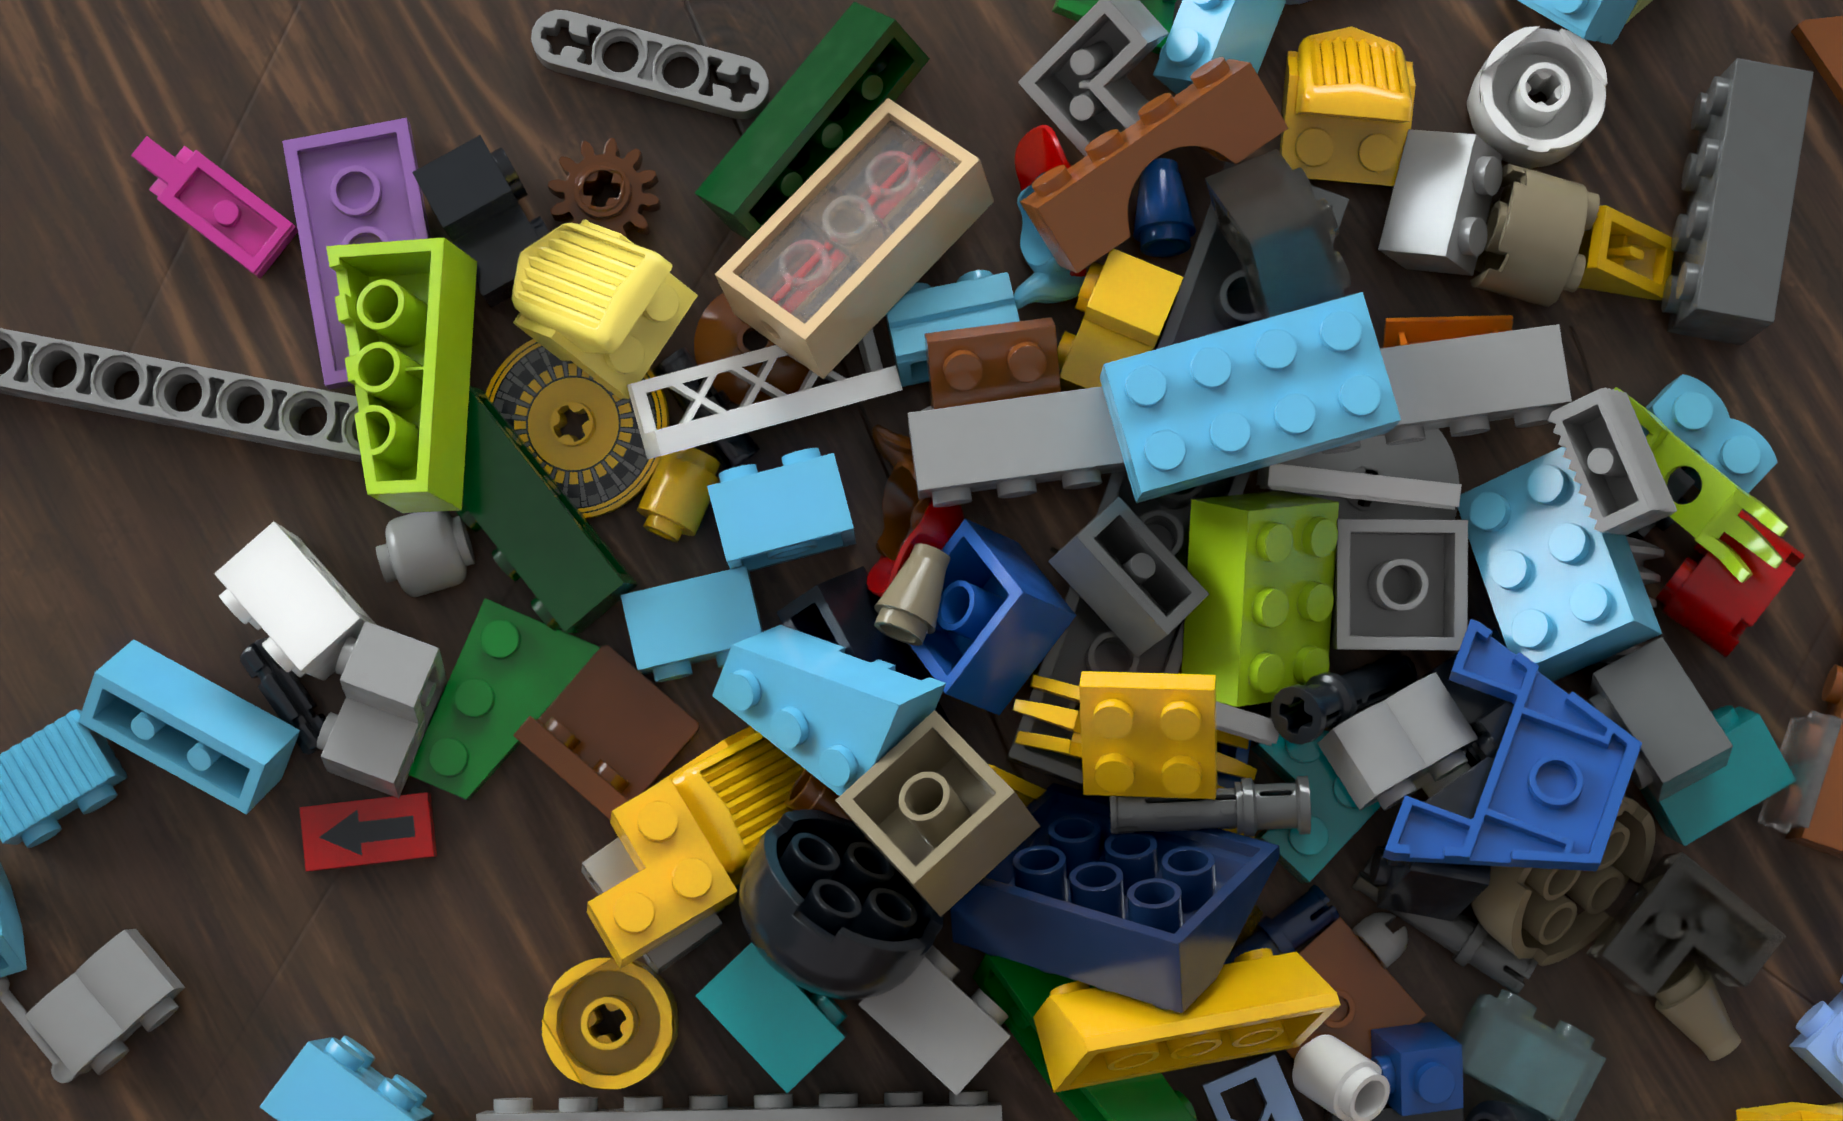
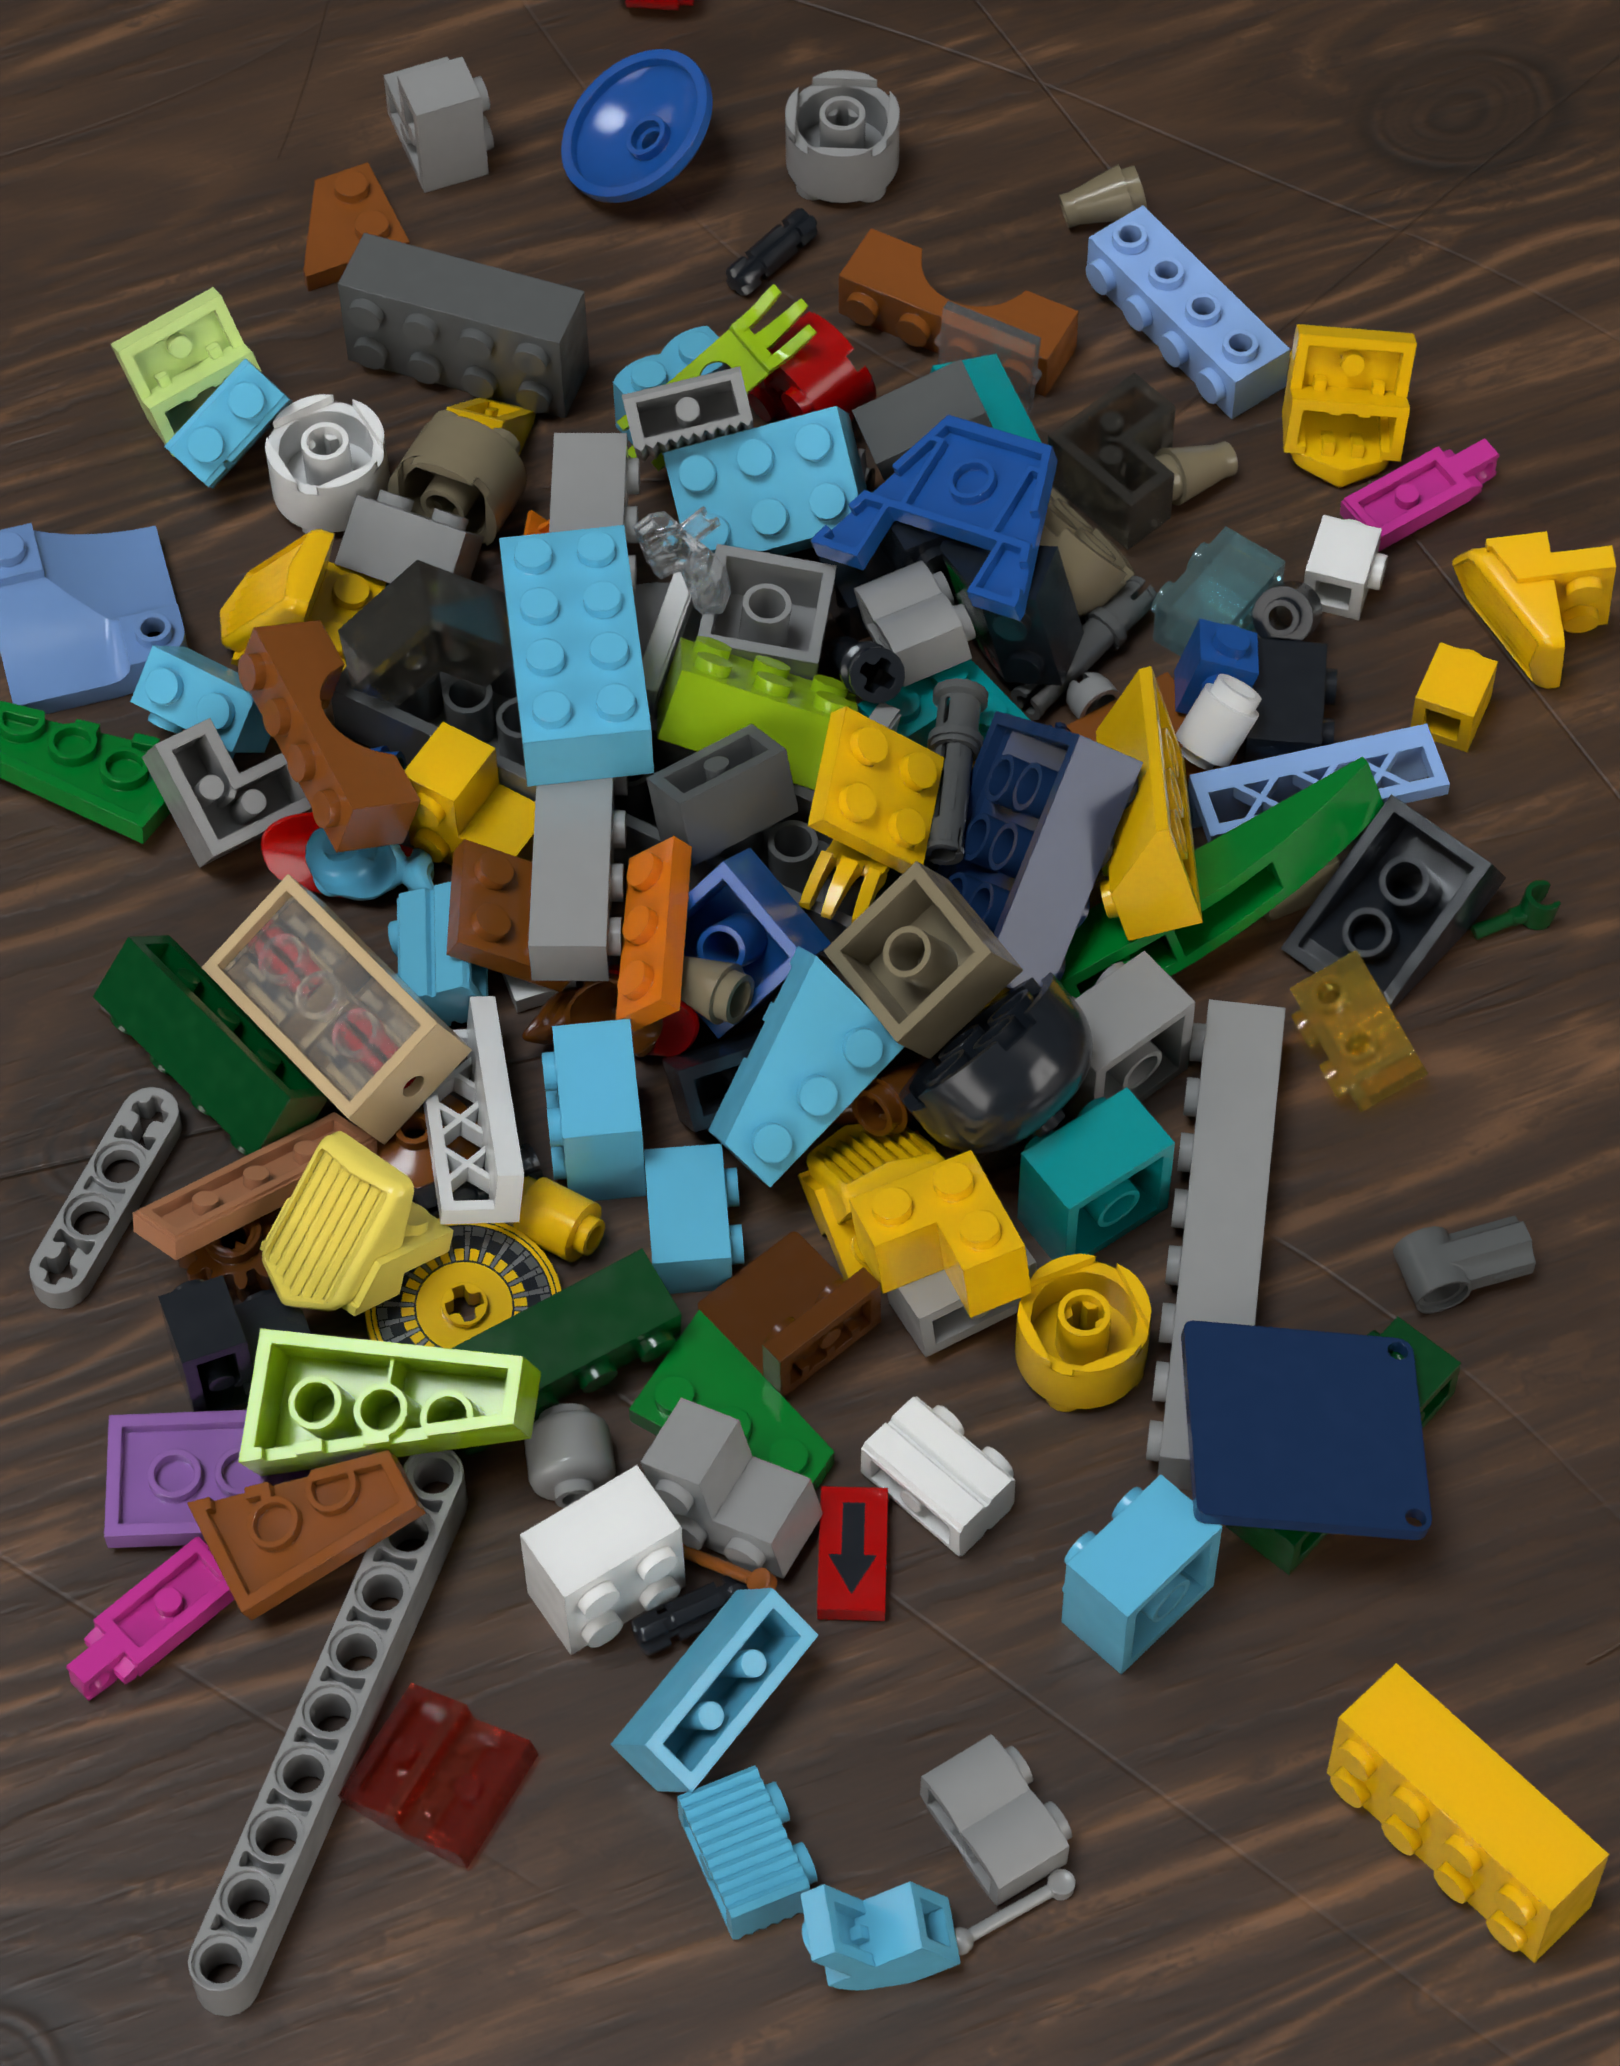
camera: 80 degrees left, 25 degrees down
(99, 489) = (438, 1775): none -> clear red slope
(288, 316) = (302, 1529): none -> dark orange wing
(298, 750) = (755, 1579): none -> dark orange hinge
(449, 904) = (939, 1474): none -> white brick
(643, 192) = (237, 1191): none -> nougat tile
(954, 535) = (654, 933): none -> orange plate
(1413, 518) = (678, 548): none -> clear piece

